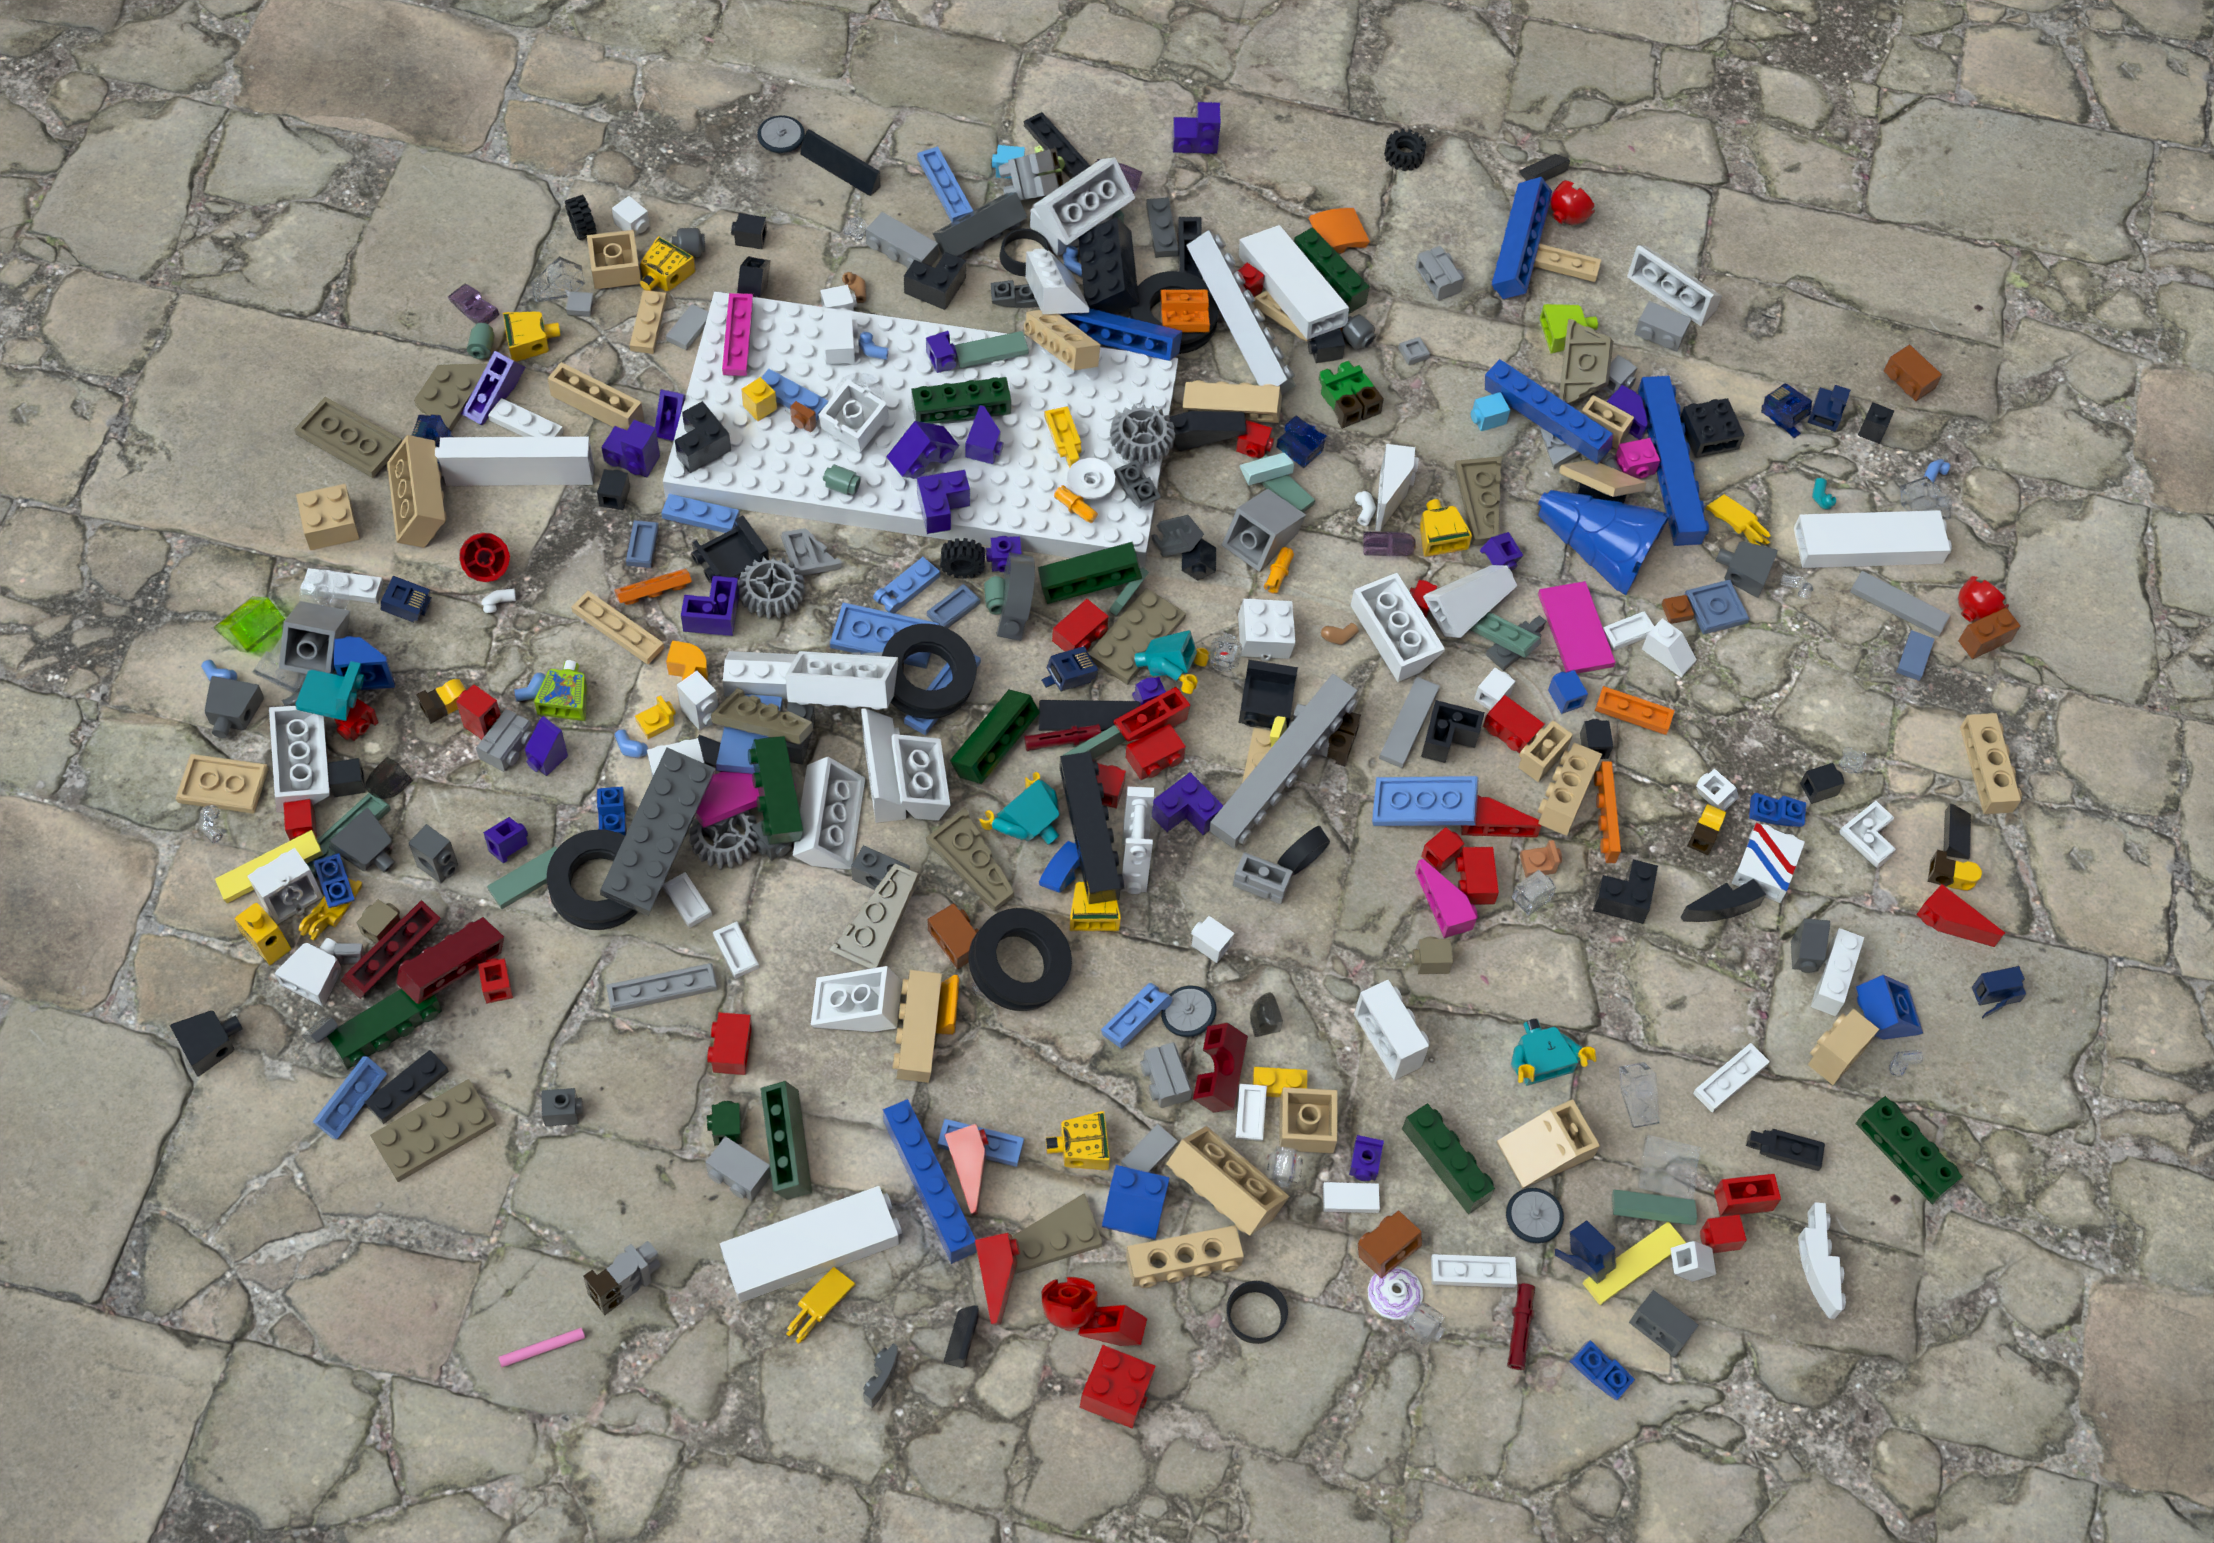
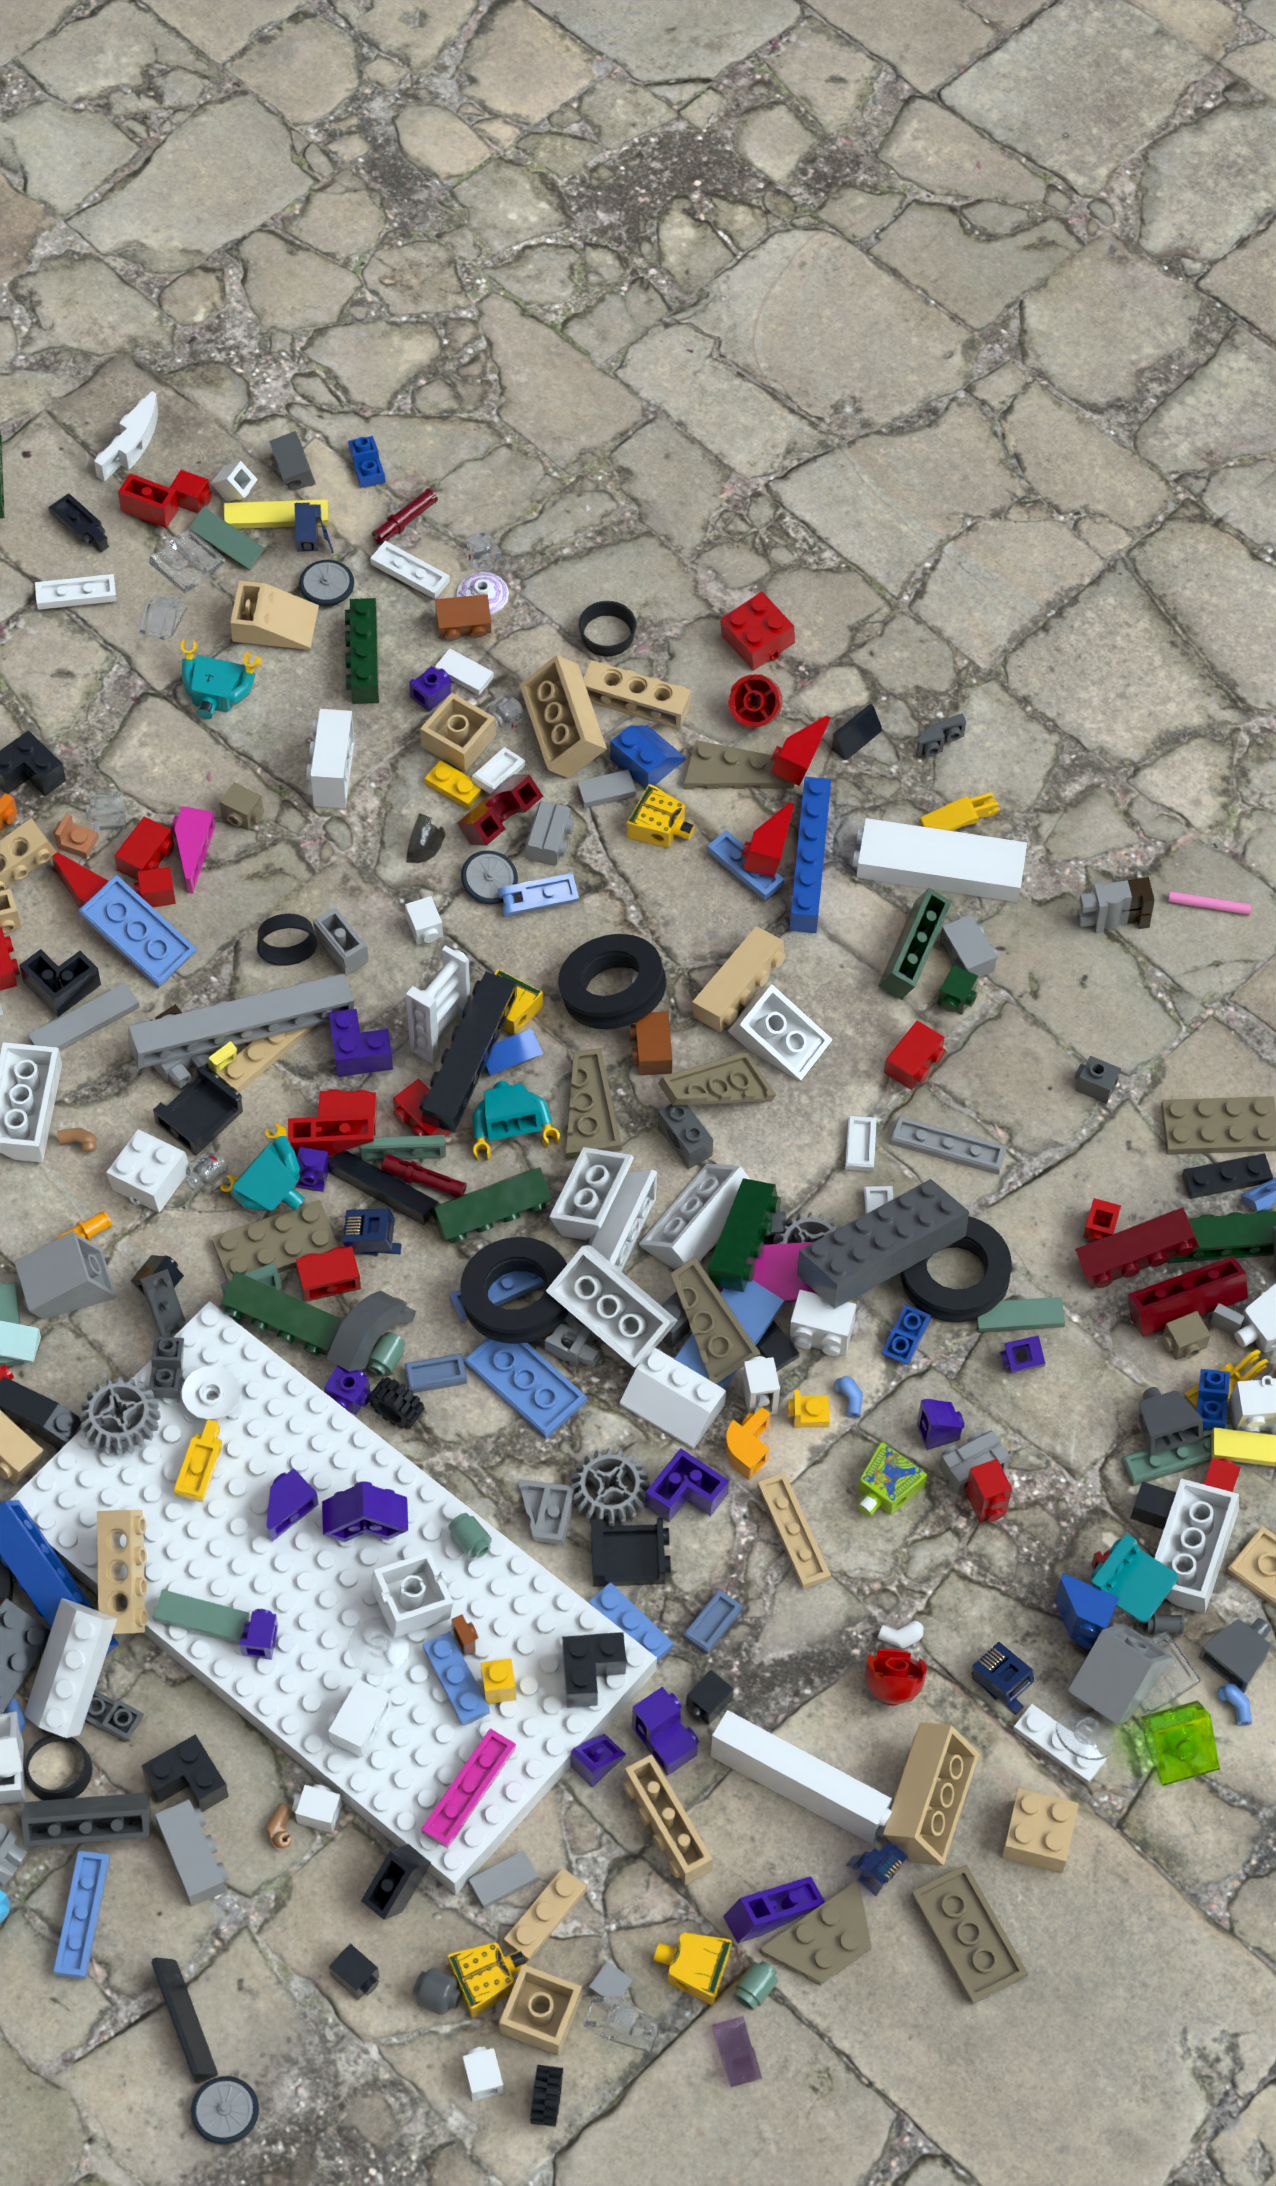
camera: 145 degrees left, 0 degrees up
(387, 780) = (1114, 1485): clear smoke brick -> none
(433, 854) = (1104, 1364): dark grey brick -> none
(441, 700) = (1015, 1542): leg -> none
(523, 421) = (758, 1846): white plate -> none
(531, 691) = (916, 1507): medium blue arm -> none
(653, 587) = (731, 1556): orange plate -> none
(869, 347) = (332, 1690): medium blue arm -> none
(907, 585) = (467, 1421): medium blue plate -> none
(940, 494) = (382, 1458): dark purple brick -> none
(948, 1006) = (694, 987): light orange slope -> none
(960, 400) = (281, 1561): dark green brick -> none
(1075, 504) = (247, 1376): light orange axle -> none
(1116, 1326) = (724, 669): red slope -> none

